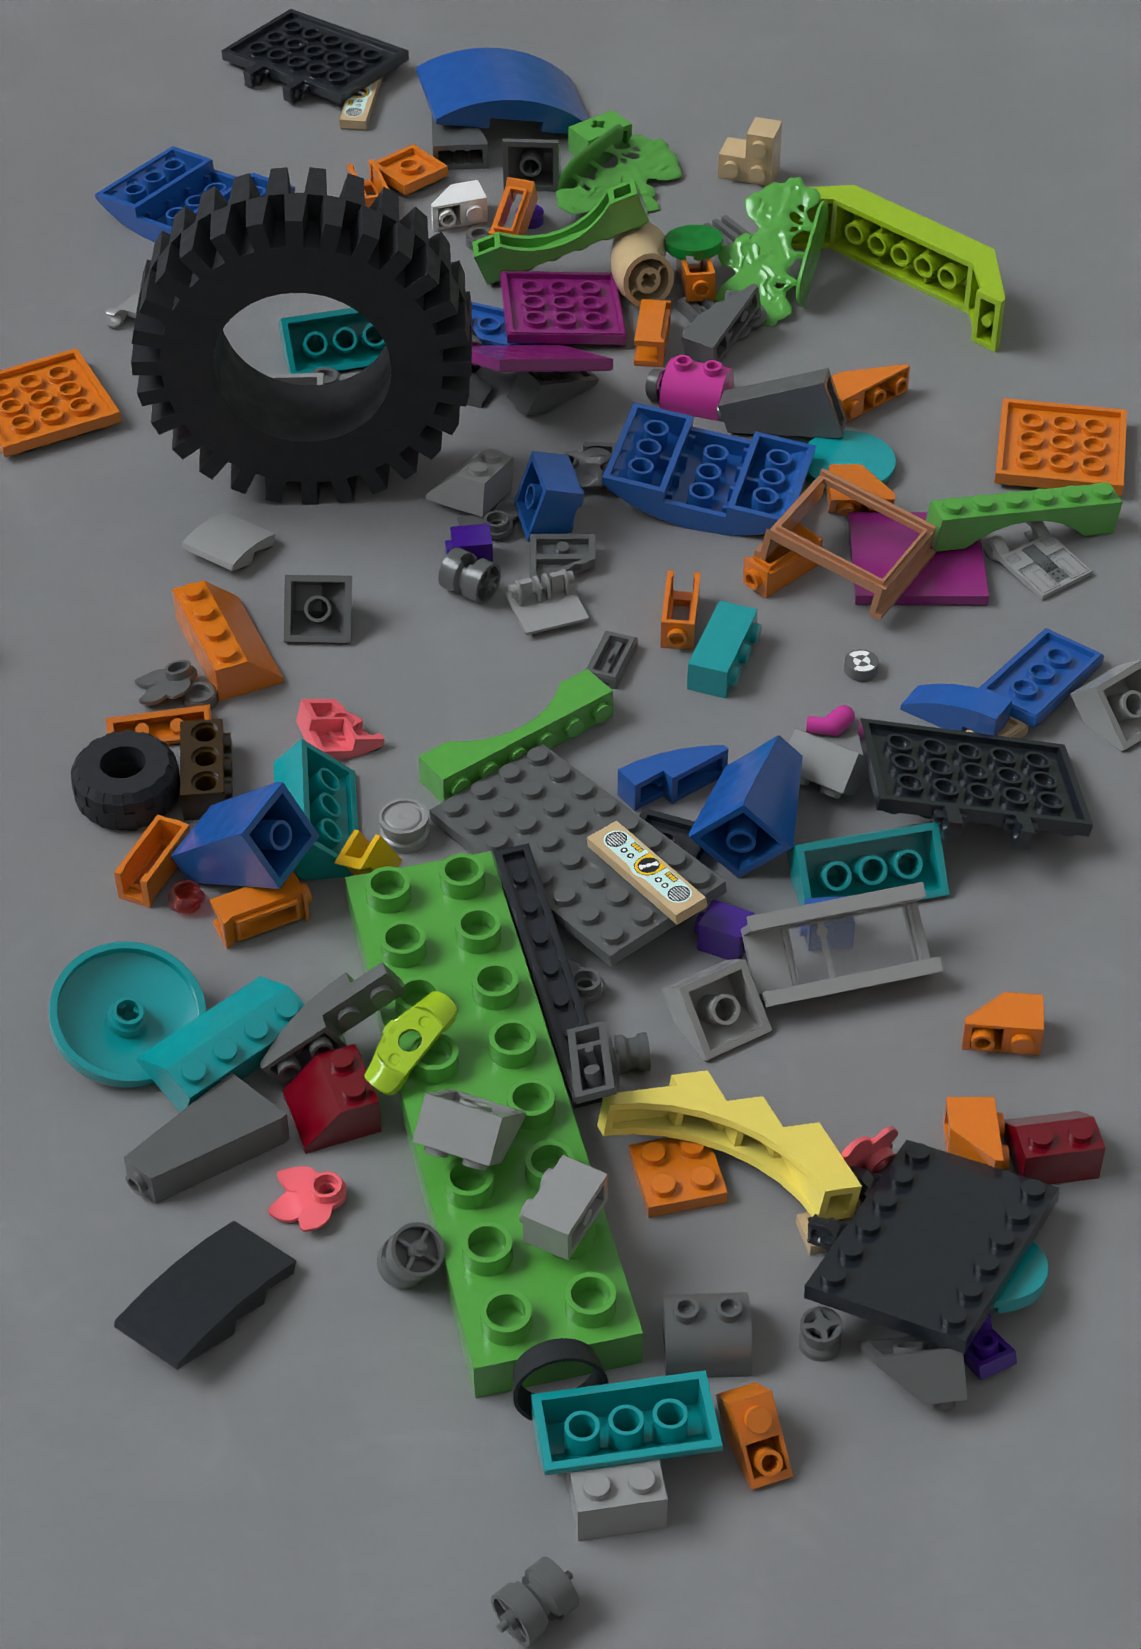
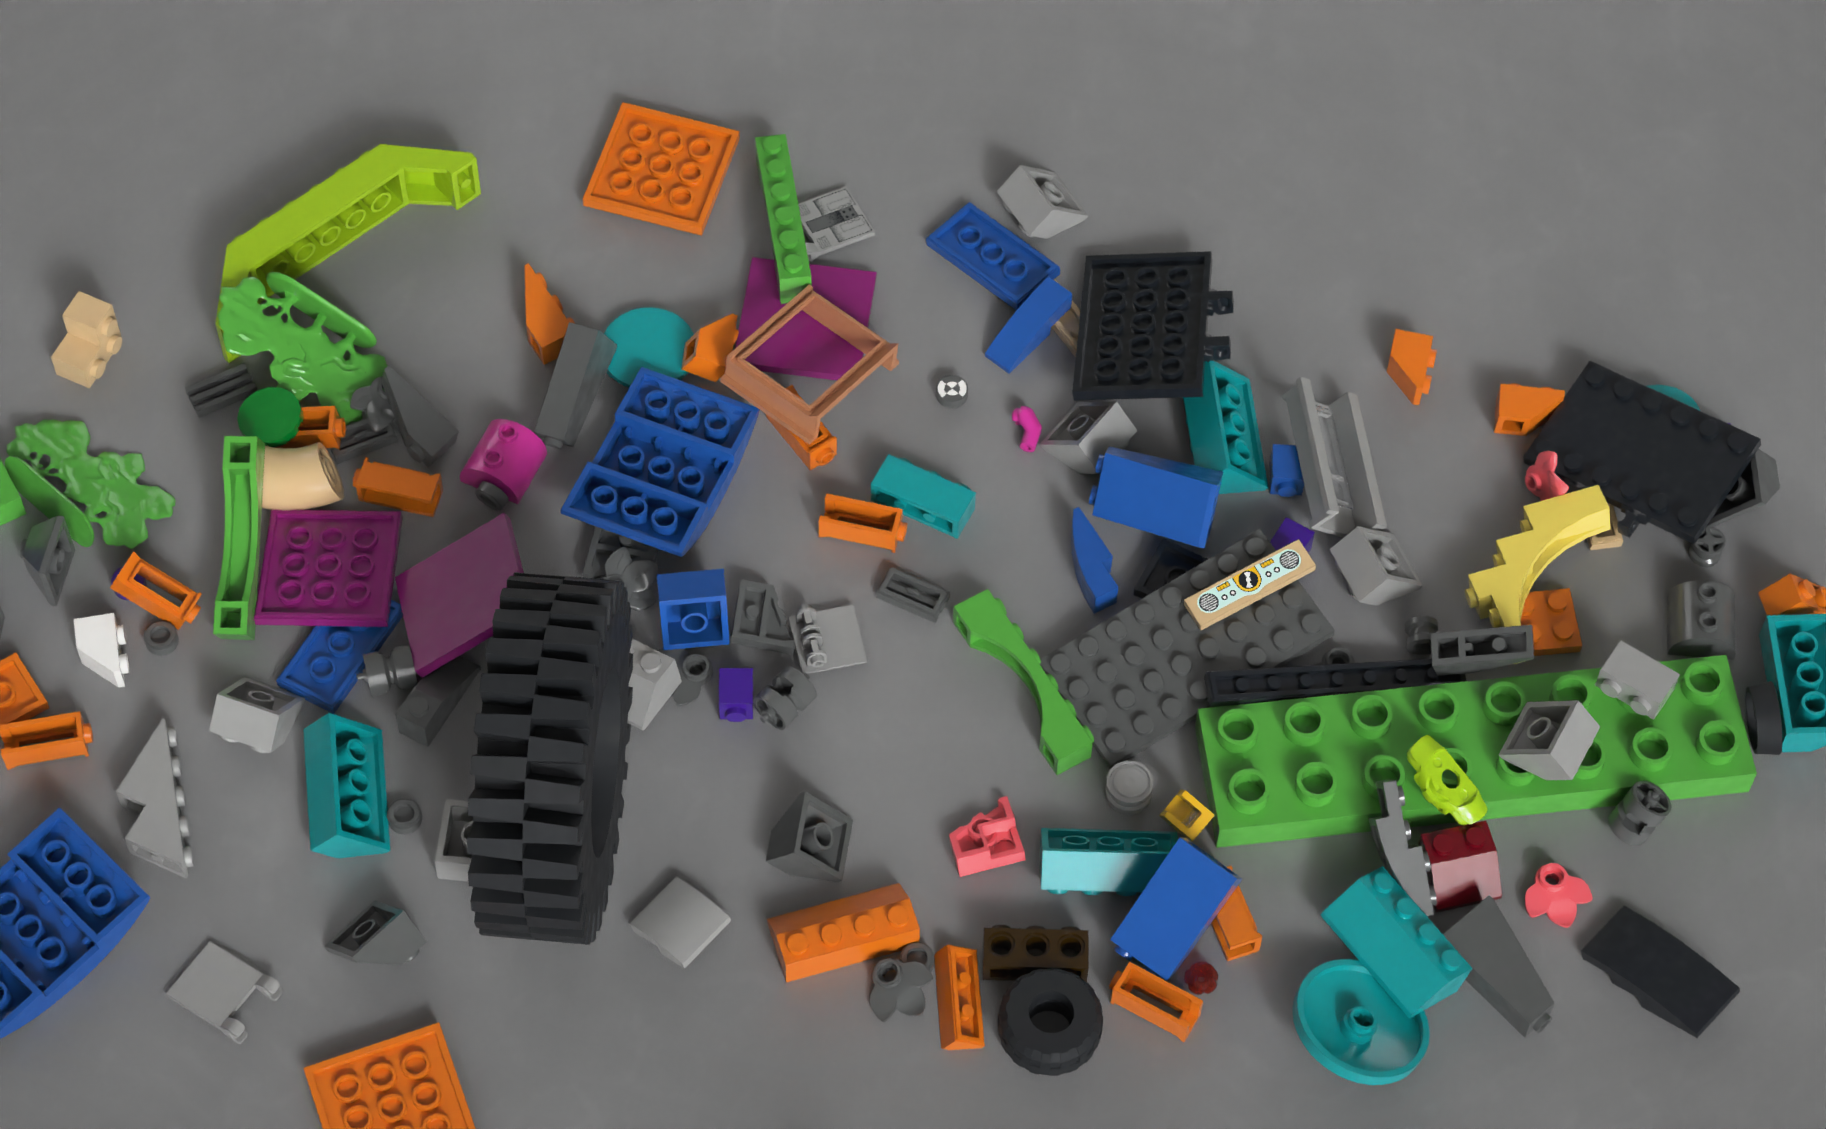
camera: 85 degrees left, 15 degrees up
(1055, 1147) = (1533, 355): dark red slope -> none

